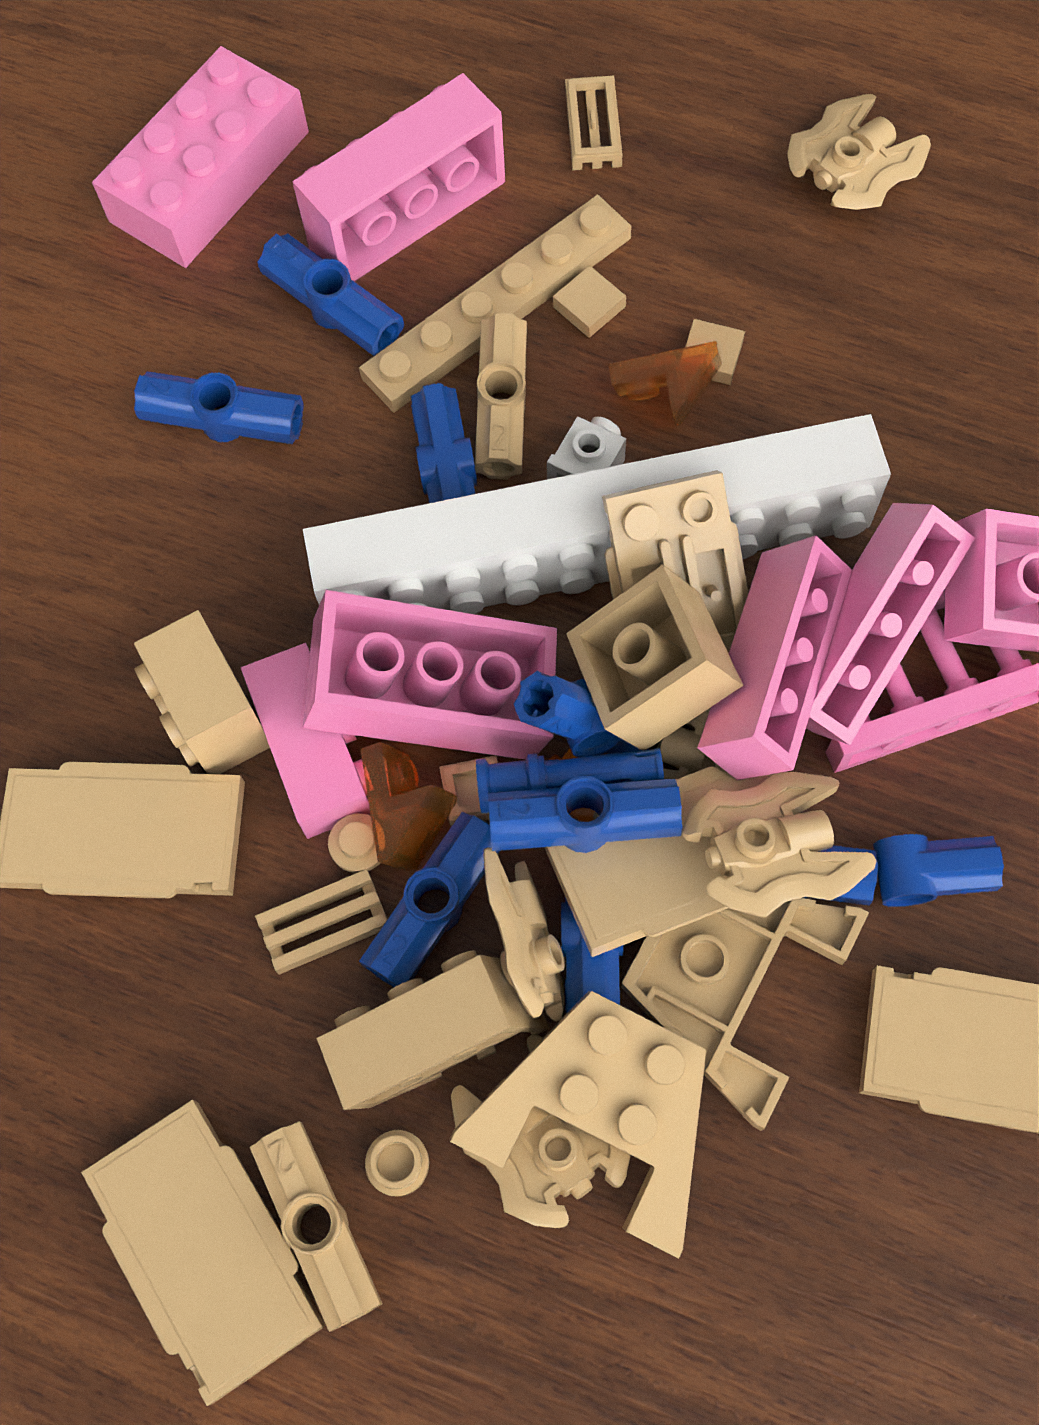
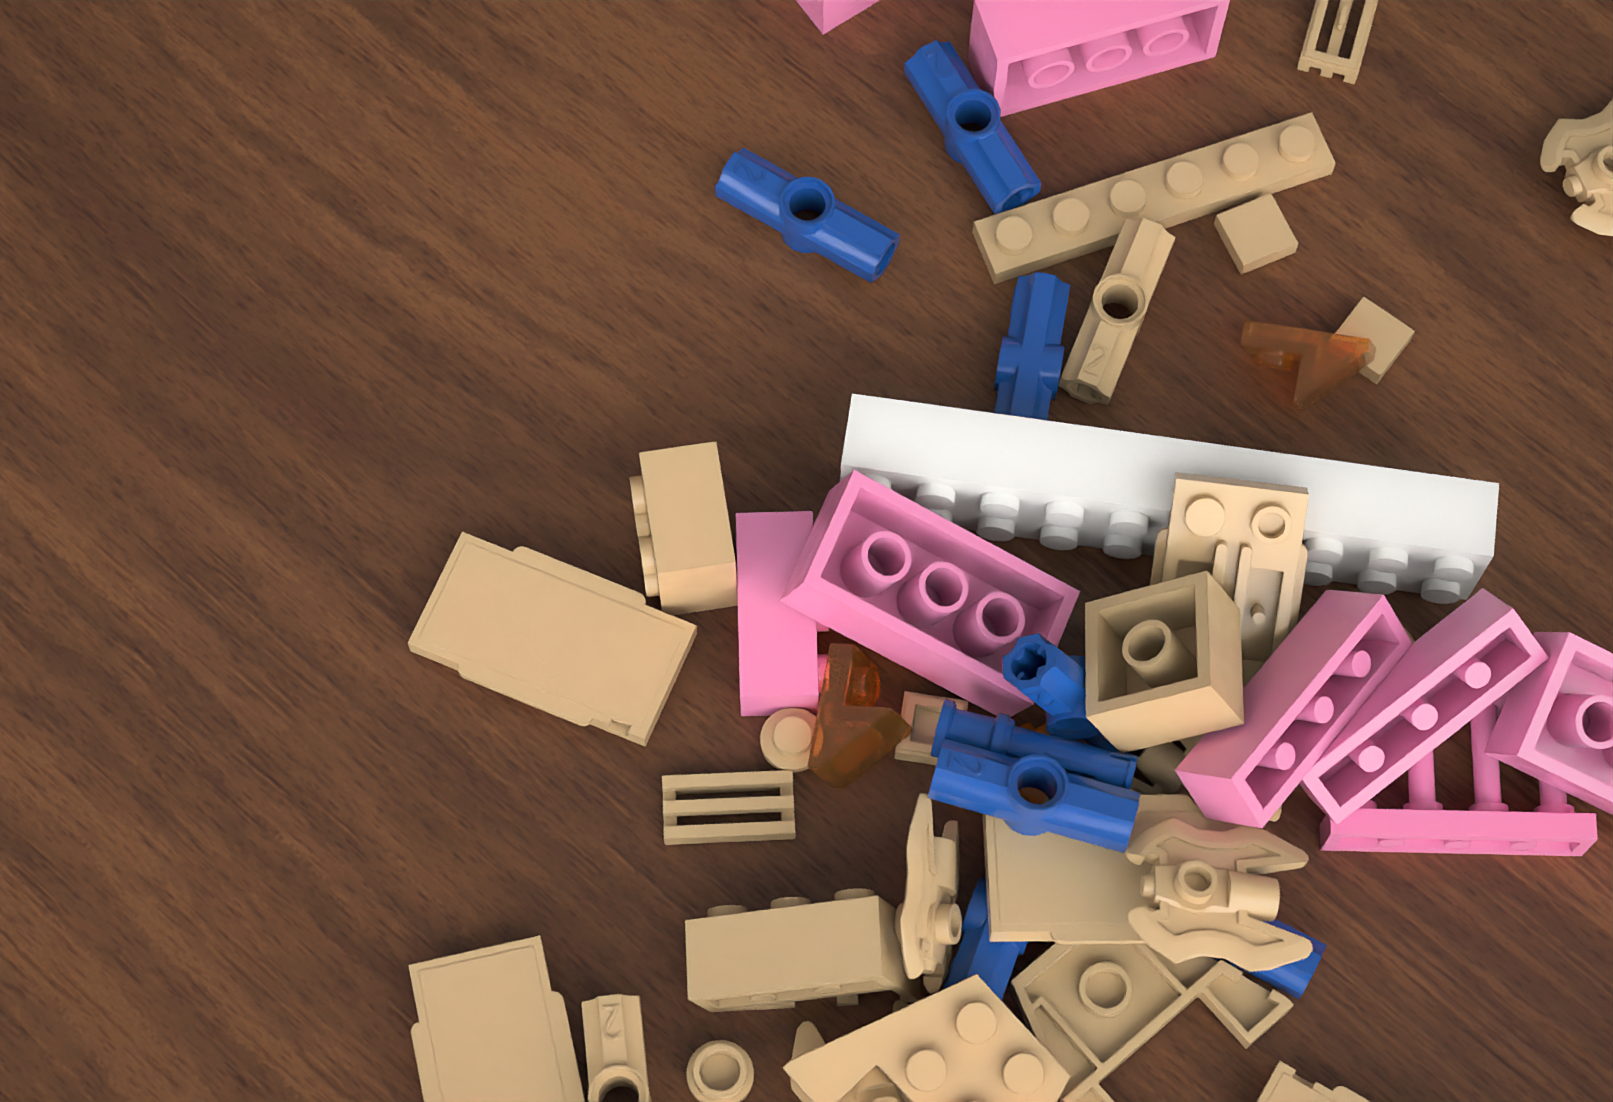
camera: 15 degrees right, 0 degrees up
(412, 934) = (816, 853): blue piece -> none
(588, 448) = (1203, 394): white brick -> none
(920, 870) = (1364, 982): blue piece -> none

